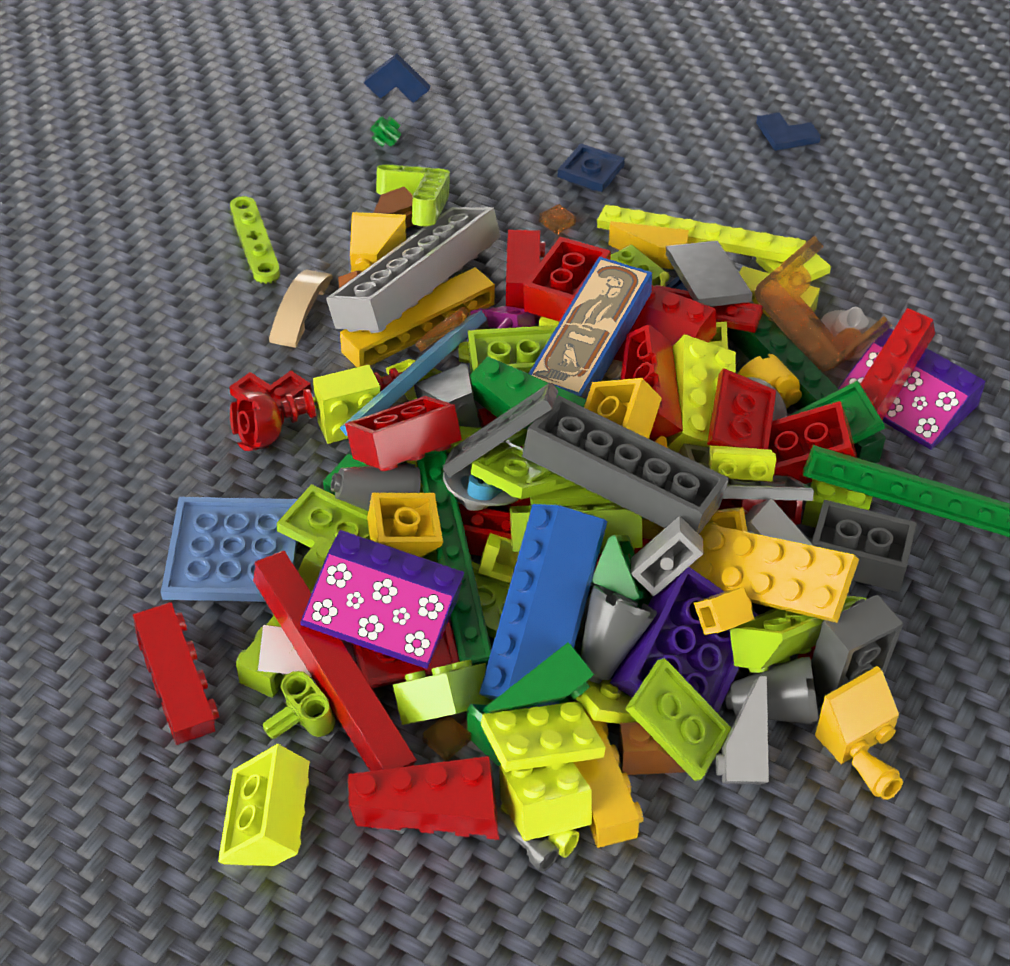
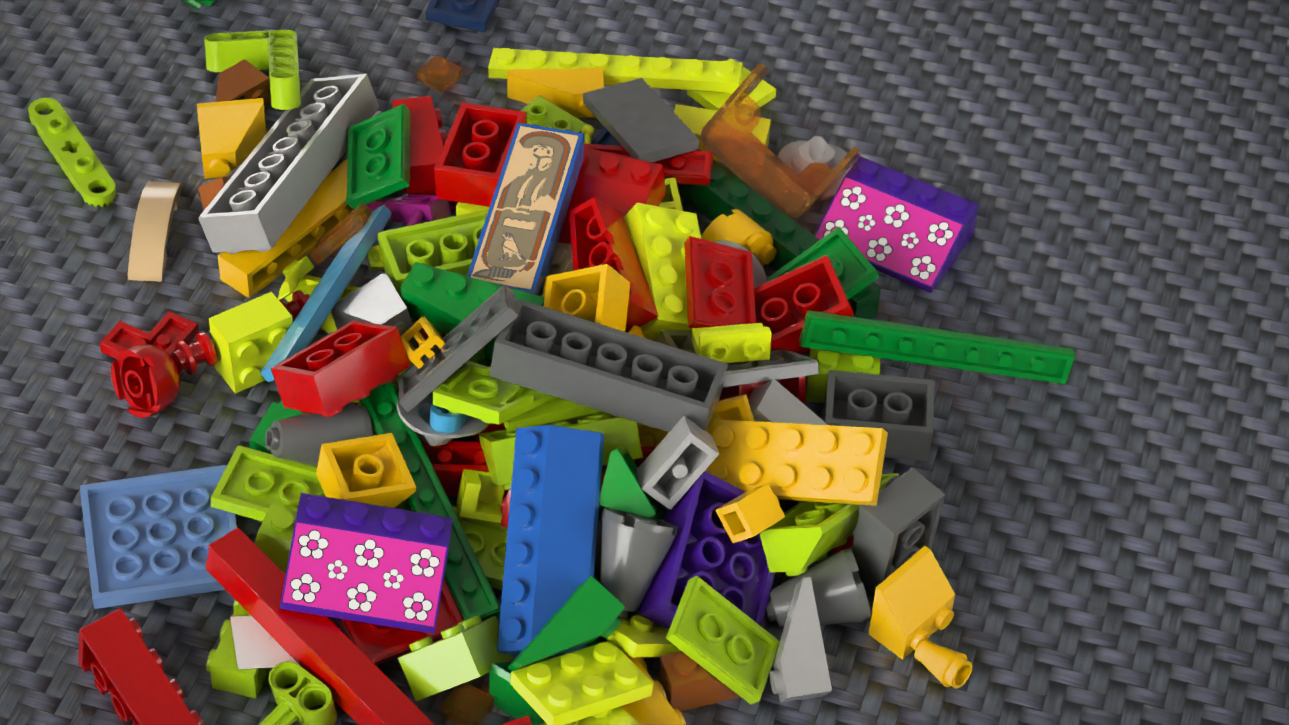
camera: 15 degrees left, 0 degrees up
(395, 357) = (294, 273): none -> neon yellow piece
(485, 418) = (424, 345): none -> yellow tile
(486, 271) = (378, 156): none -> green tile
(897, 359) = (878, 193): red brick -> none

